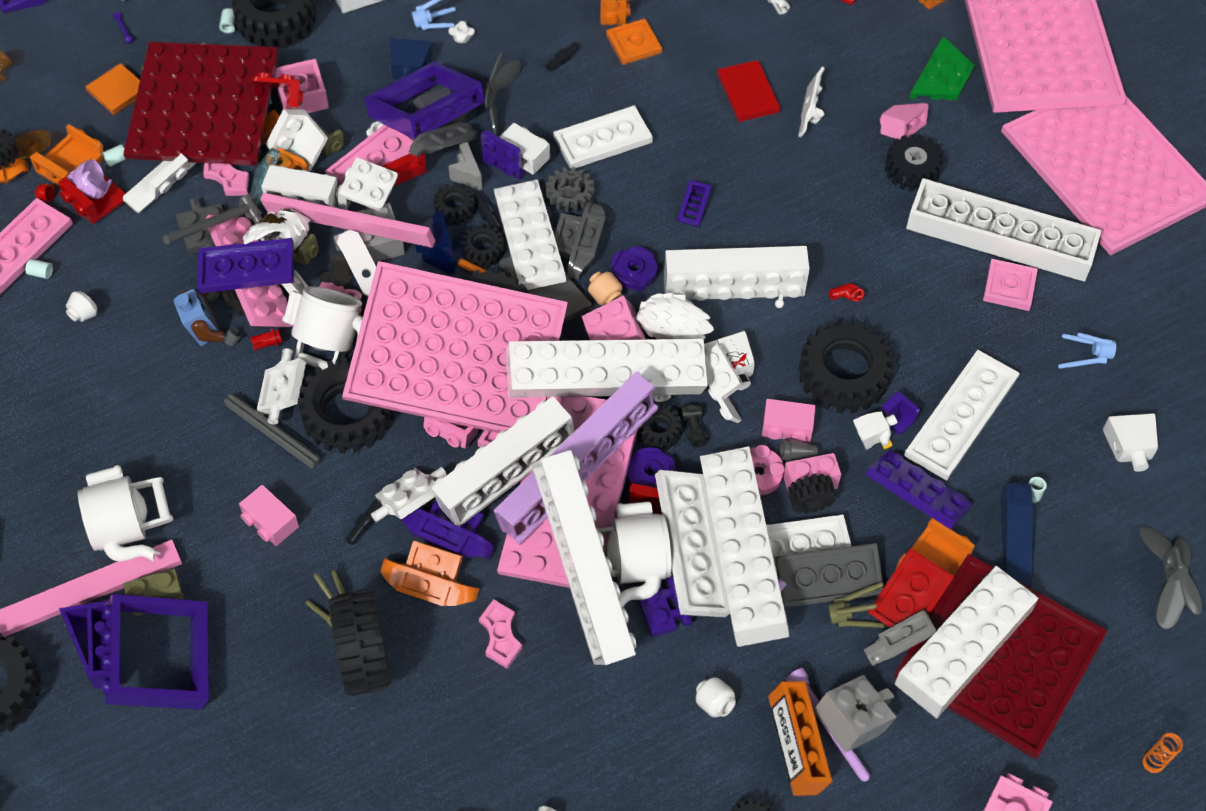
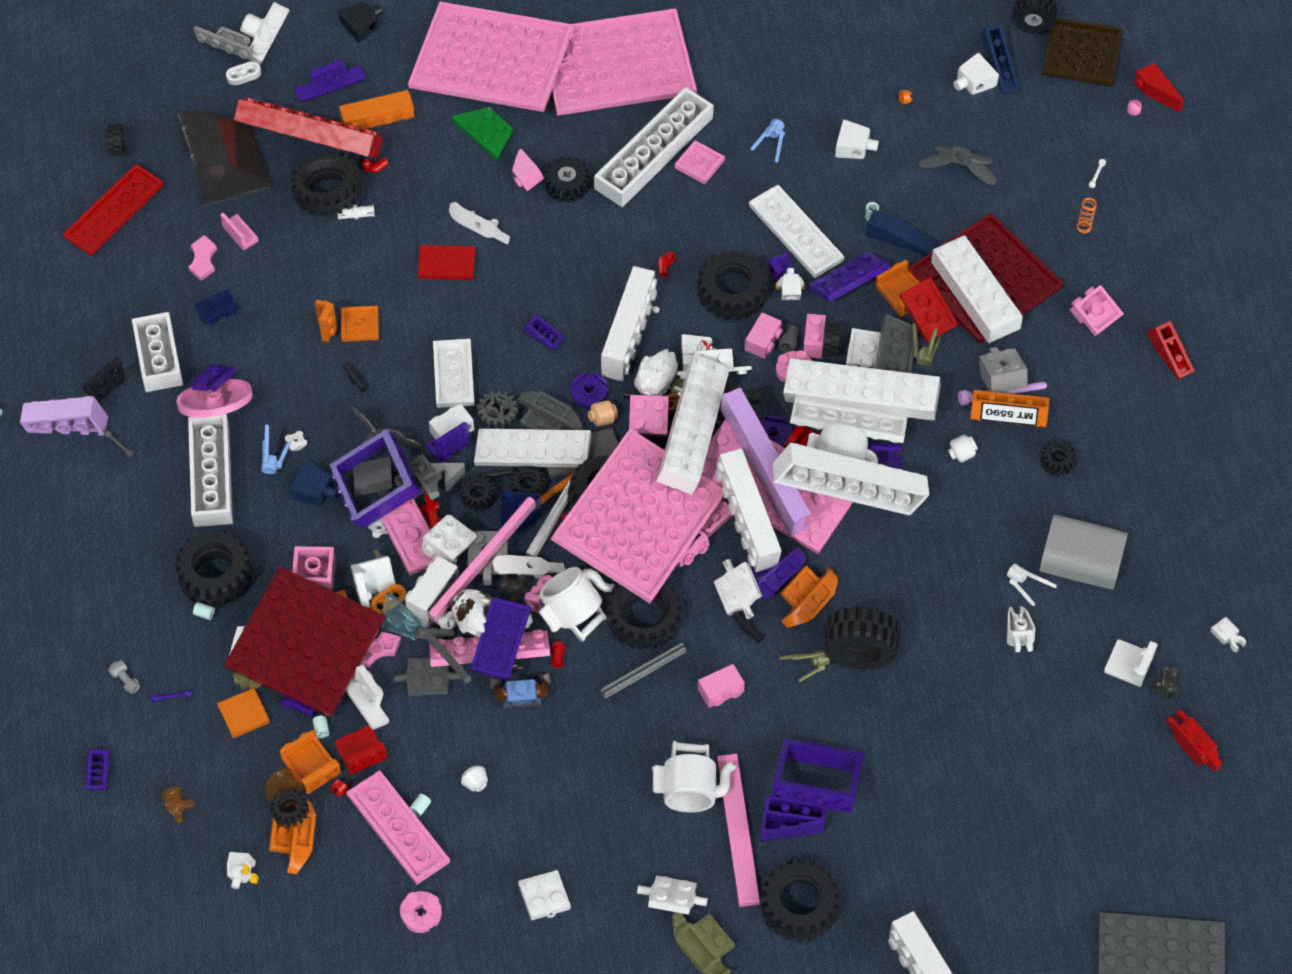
camera: 70 degrees left, 0 degrees up
(90, 179) = (350, 745): lavender piece -> none
(156, 585) = (760, 774): olive brick -> none
(281, 386) = (611, 650): white plate -> none
(294, 95) = (336, 567): red bracket -> none
(503, 645) = (876, 565): bright pink tile -> none
(900, 638) = (958, 326): light grey hinge -> none

